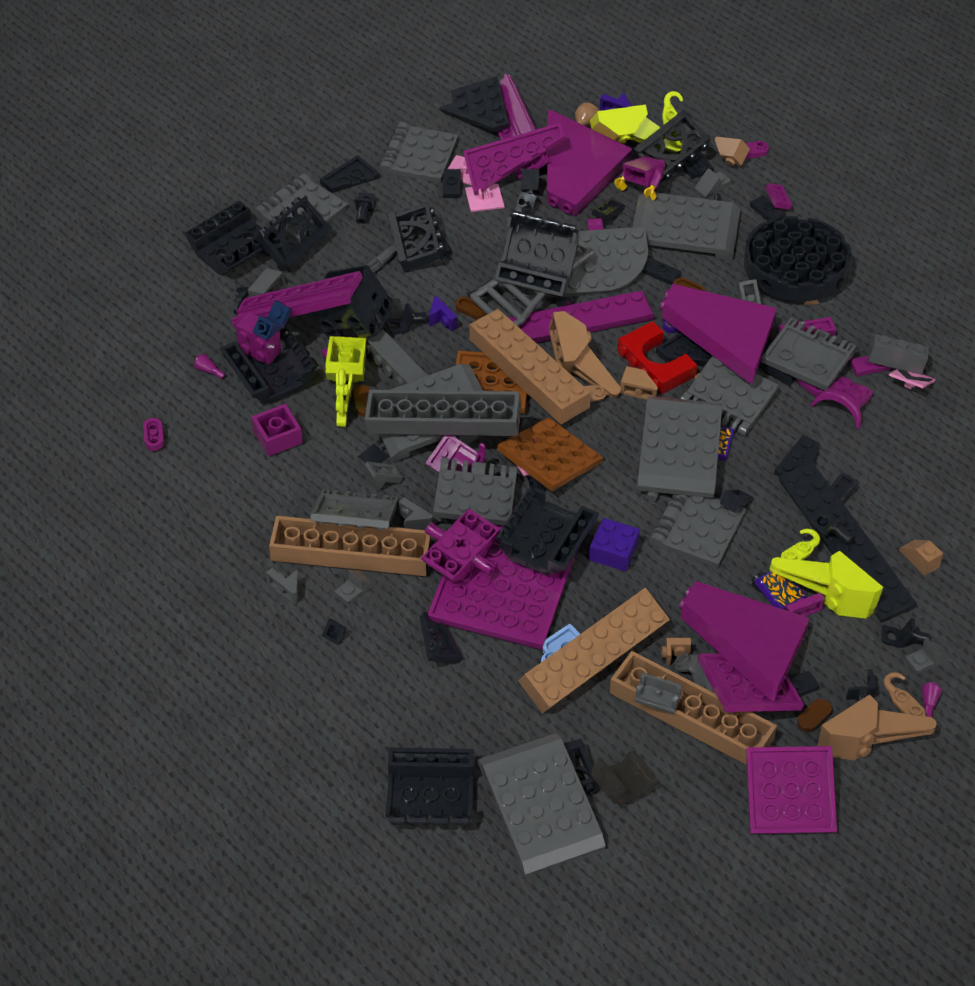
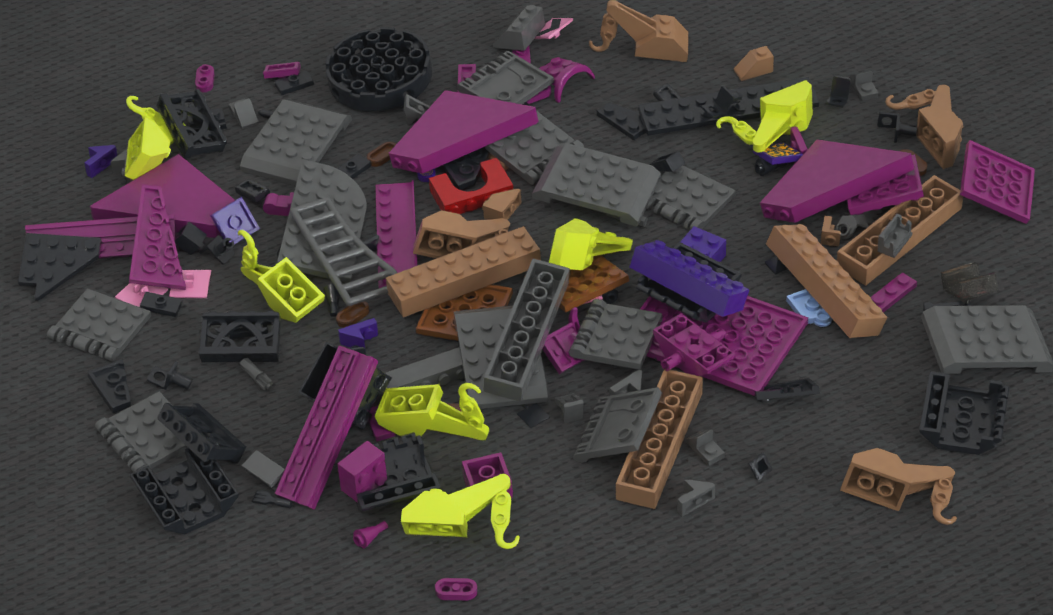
camera: 75 degrees left, 5 degrees down
(226, 410) = (447, 515): none -> neon yellow slope
(276, 320) = (360, 438): dark blue slope -> none
(324, 740) = (887, 480): none -> medium nougat slope
(478, 247) = (282, 286): none -> neon yellow slope
(538, 253) = (331, 230): black slope -> none
(543, 525) = (689, 278): none -> dark purple brick
(557, 203) = (233, 218): none -> tile
(575, 433) = (577, 244): none -> neon yellow slope
(585, 113) = (108, 181): medium nougat helmet -> none
(602, 716) = (894, 291): none -> magenta plate
(642, 171) = (222, 147): magenta torso -> none
(732, 150) = (210, 86): medium nougat slope -> none
(926, 463) = (654, 37): none -> medium nougat slope
(930, 694) = (904, 89): magenta cone -> none

